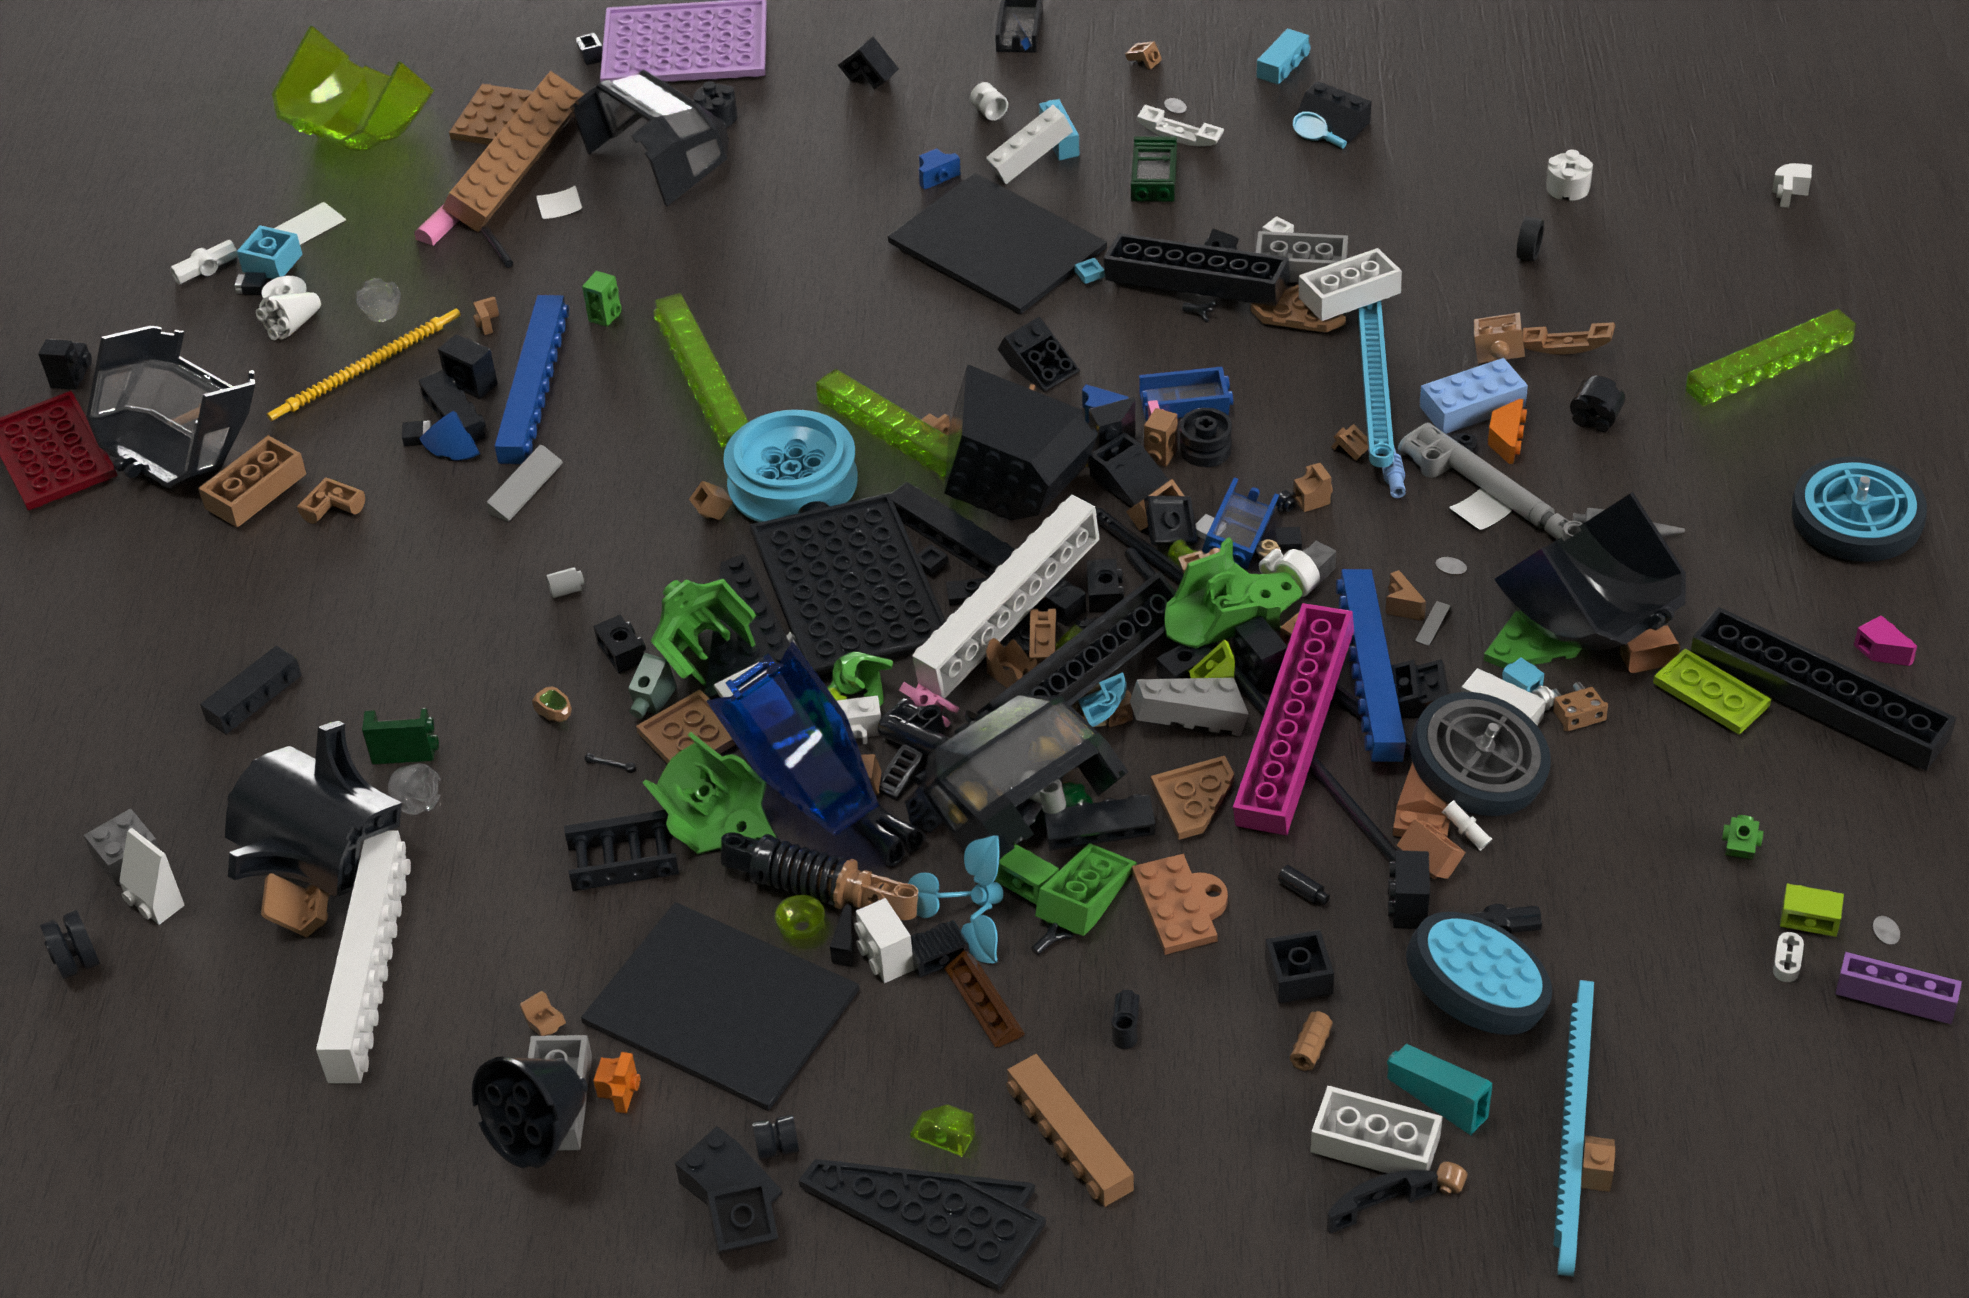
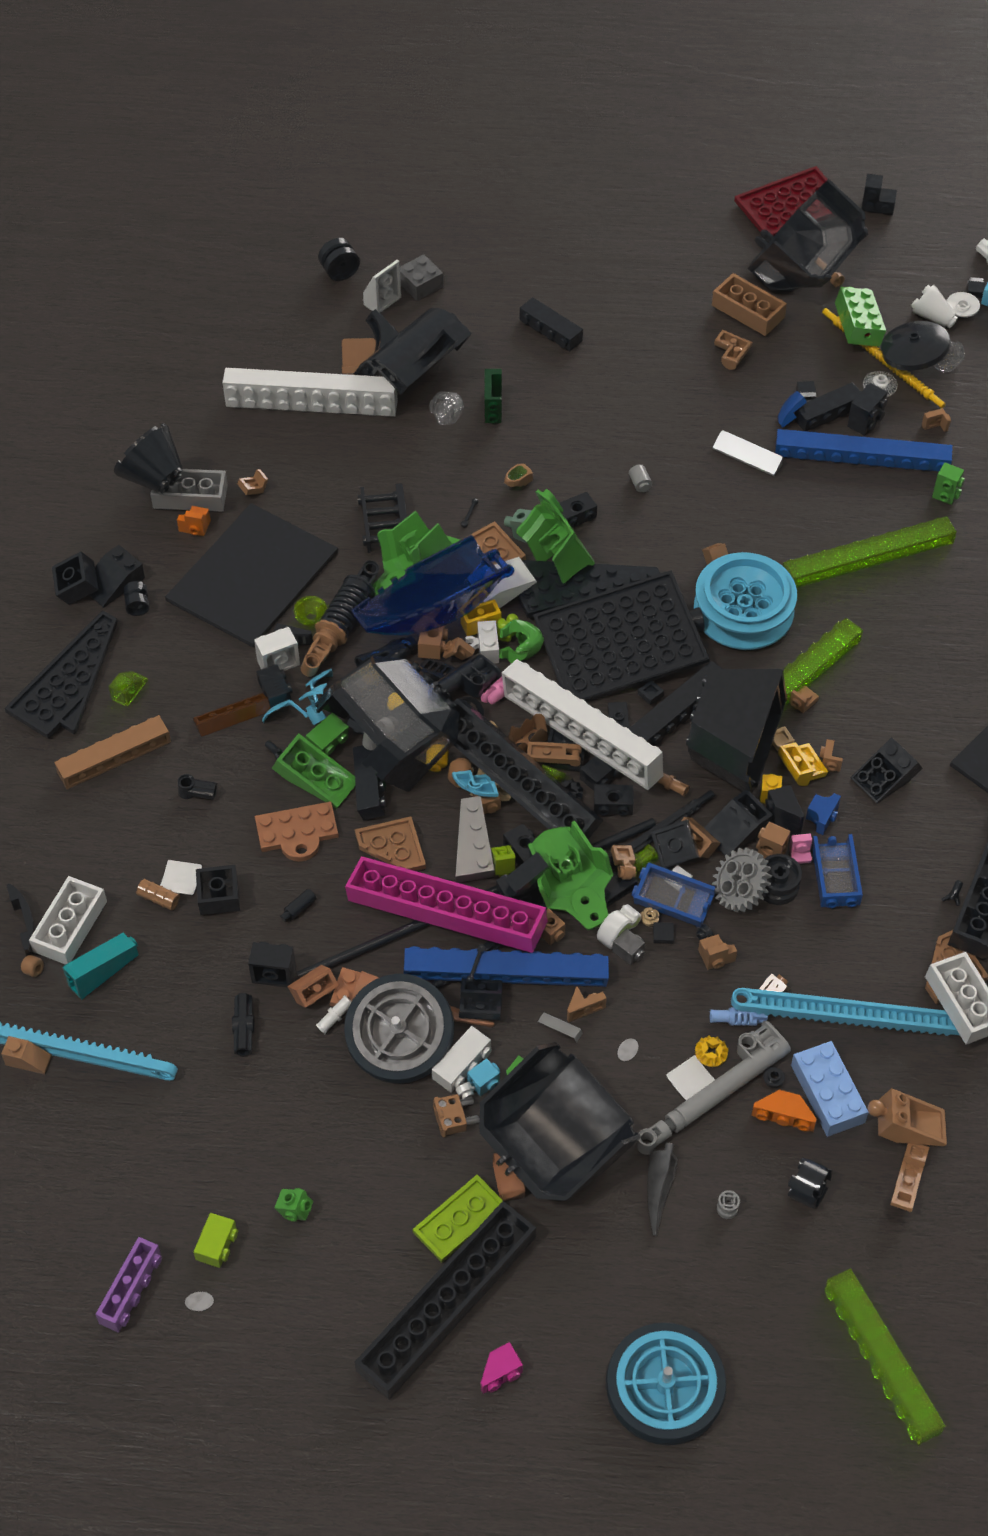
camera: 90 degrees right, 10 degrees up
(300, 372) = (860, 316): none -> bright green brick
(365, 320) = (915, 345): none -> black dish
(408, 369) = (882, 380): none -> dish
(874, 743) = (458, 648): none -> medium nougat bracket
(1225, 438) = (741, 879): none -> light grey gear
(1260, 615) = (527, 873): none -> black slope
(1273, 1026) = (180, 877): none -> white sticker
(1361, 673) = (481, 949): none -> black hinge
(1441, 499) = (711, 1059): none -> yellow gear
(1478, 973) = (180, 991): wheel -> none
(1634, 471) = (728, 1209): none -> light grey wheel
(1783, 956) = (182, 1215): white beam -> none

